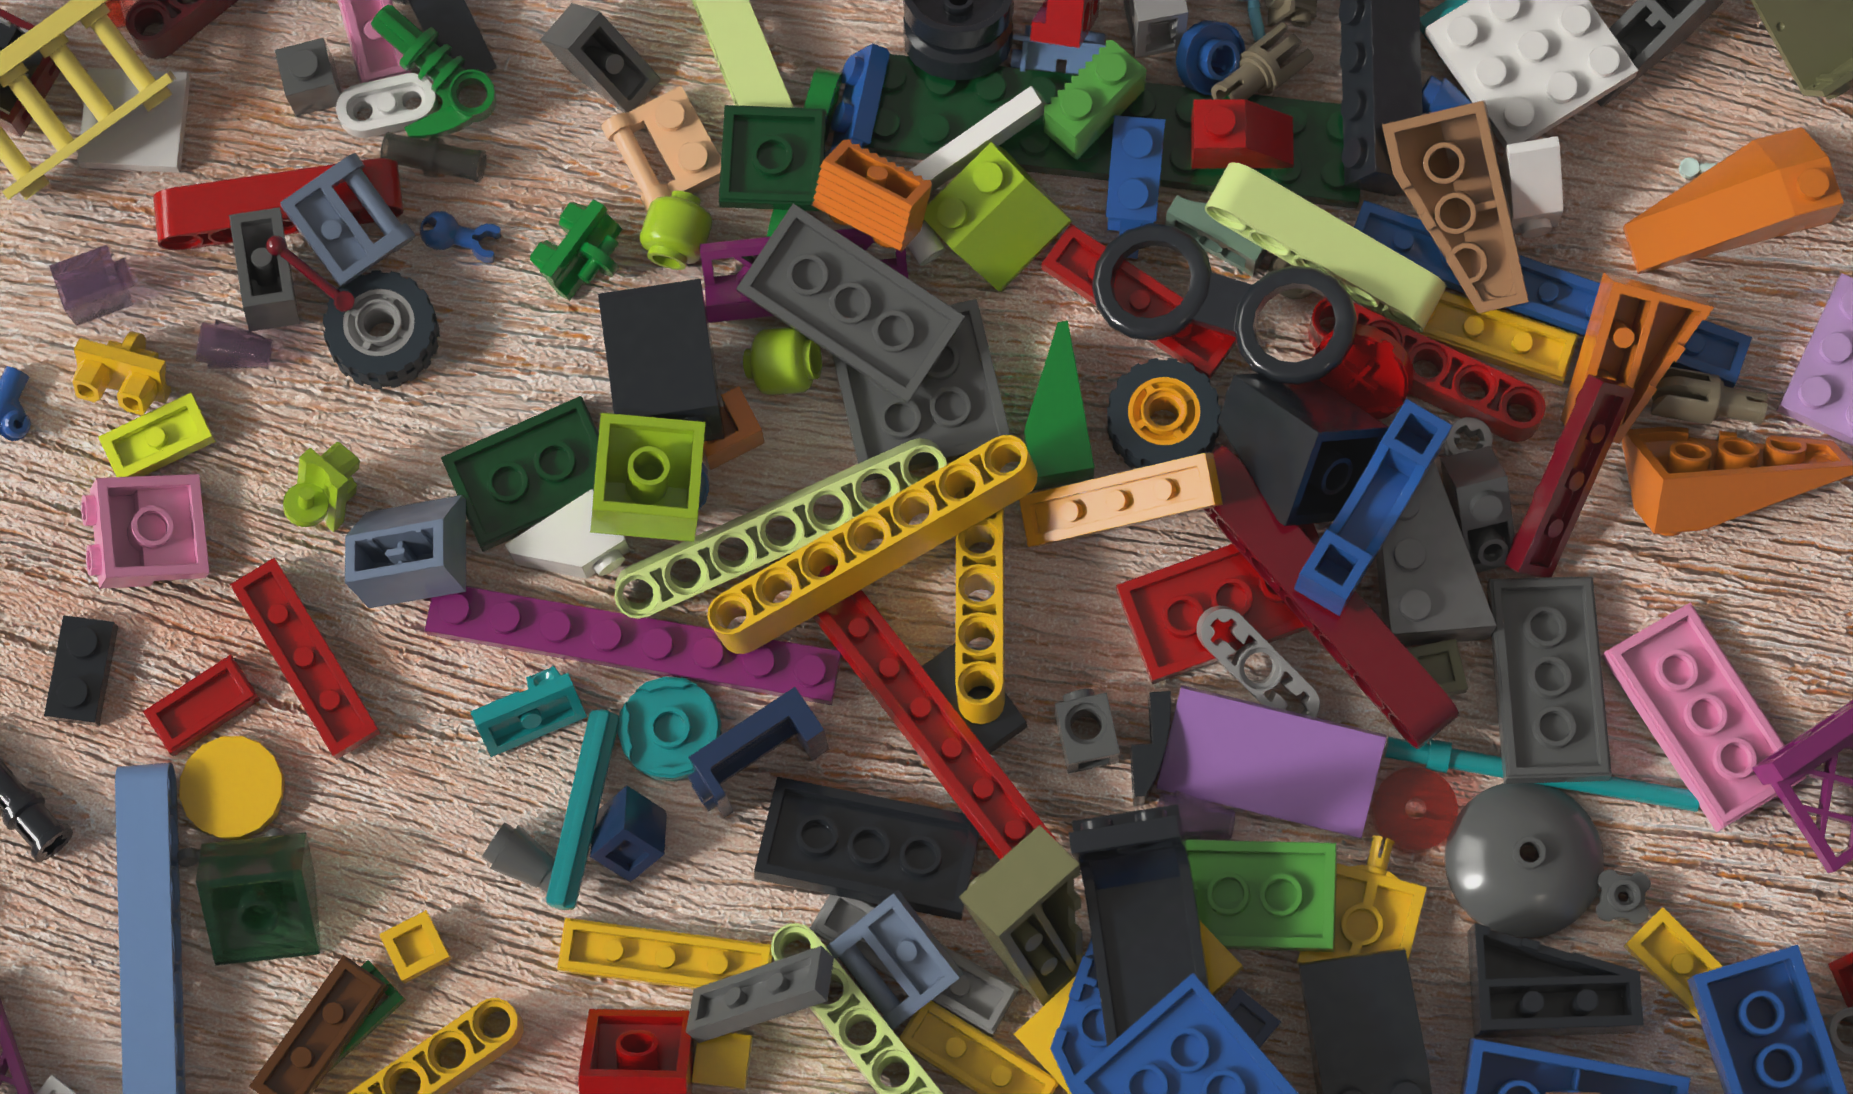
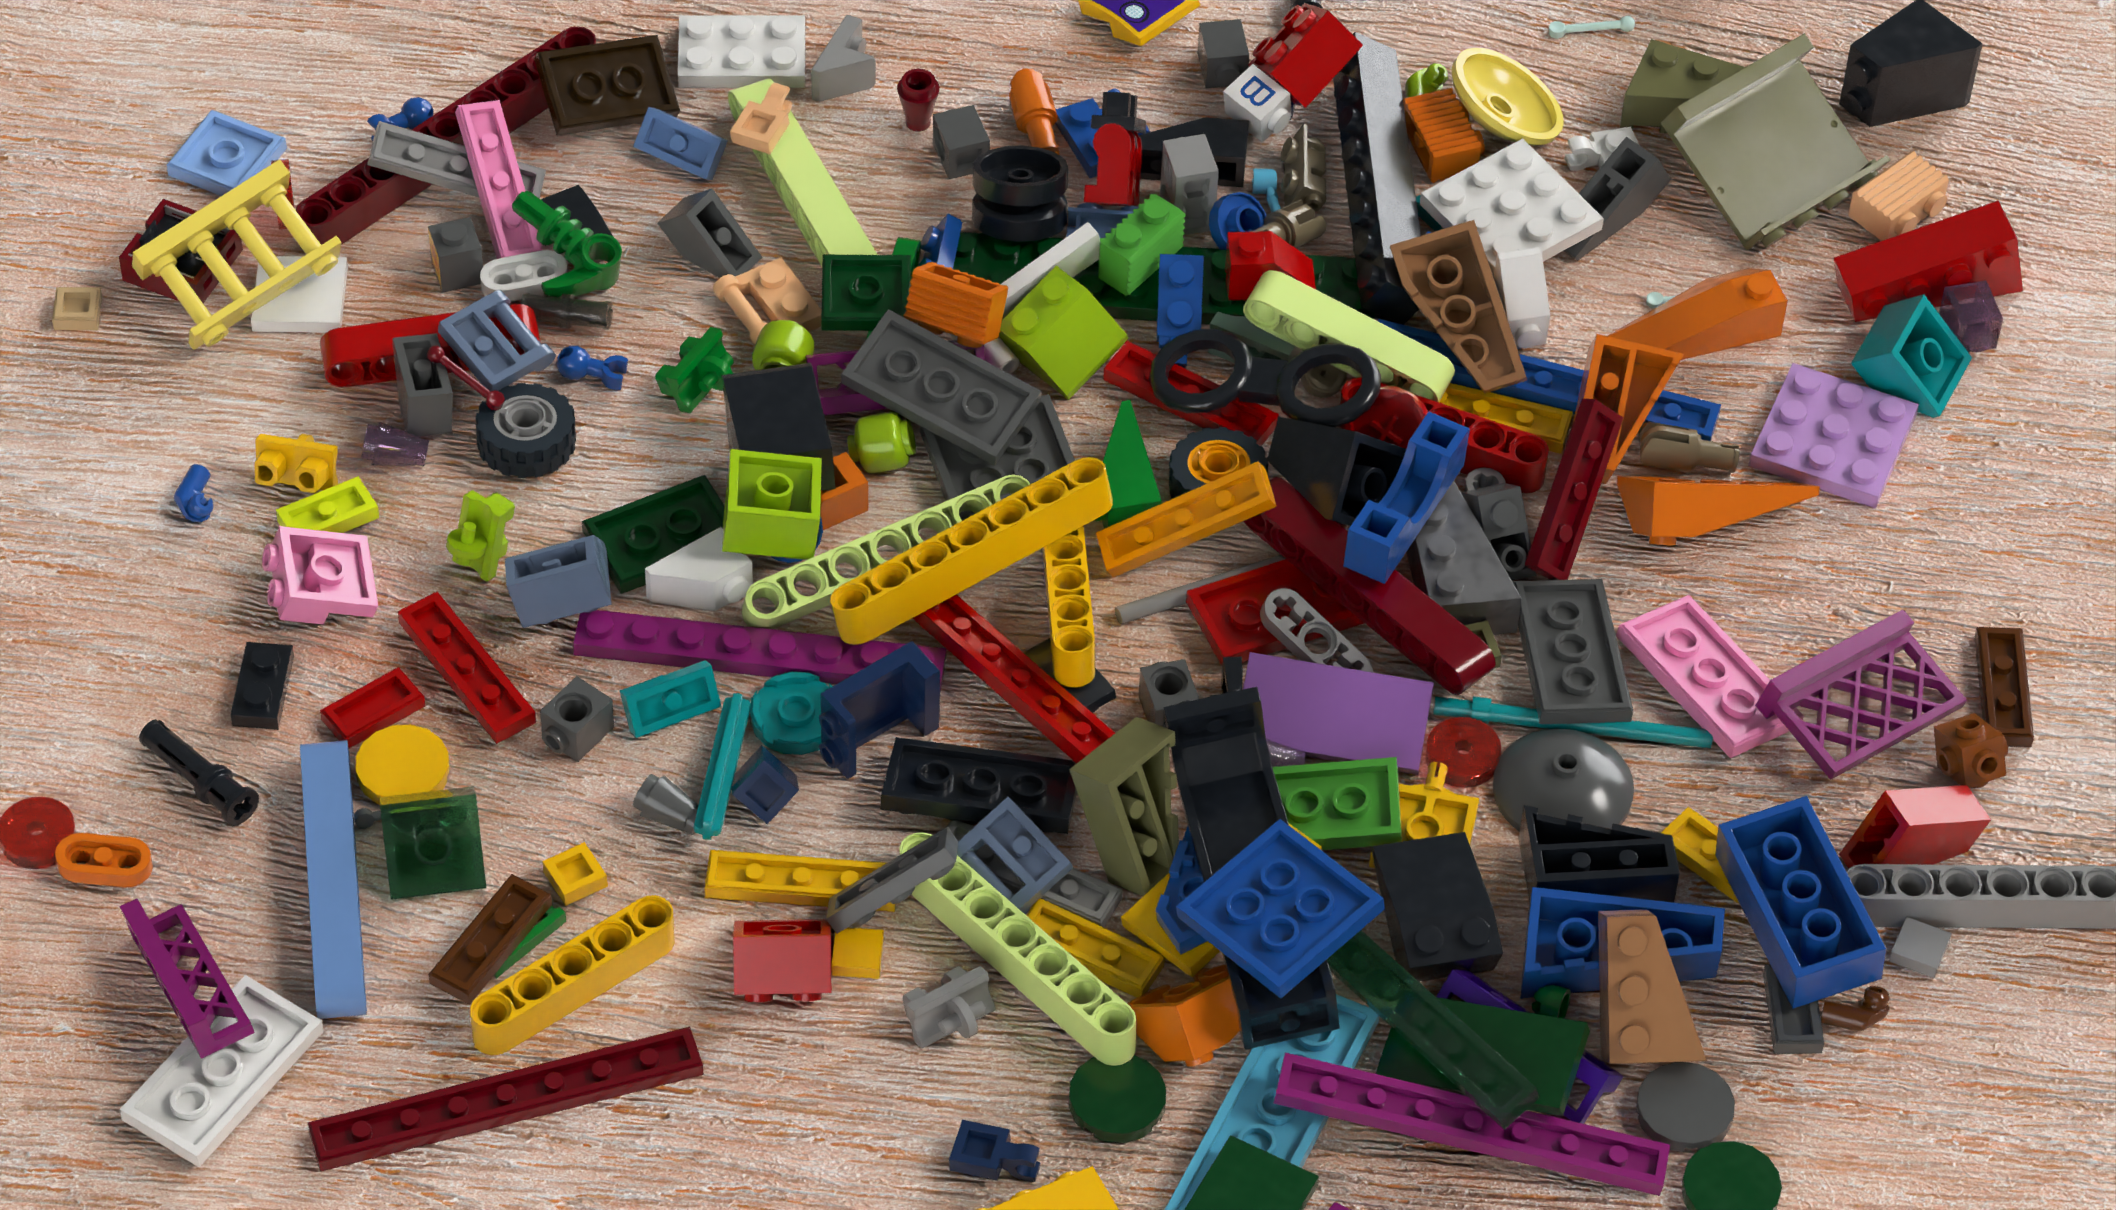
camera: 10 degrees left, 25 degrees down
(93, 284) = (268, 403): clear purple brick -> none
(422, 716) = (576, 719): none -> dark grey brick
(1107, 580) = (1177, 596): none -> light grey bar
(1610, 905) = (1648, 816): dark grey plate -> none

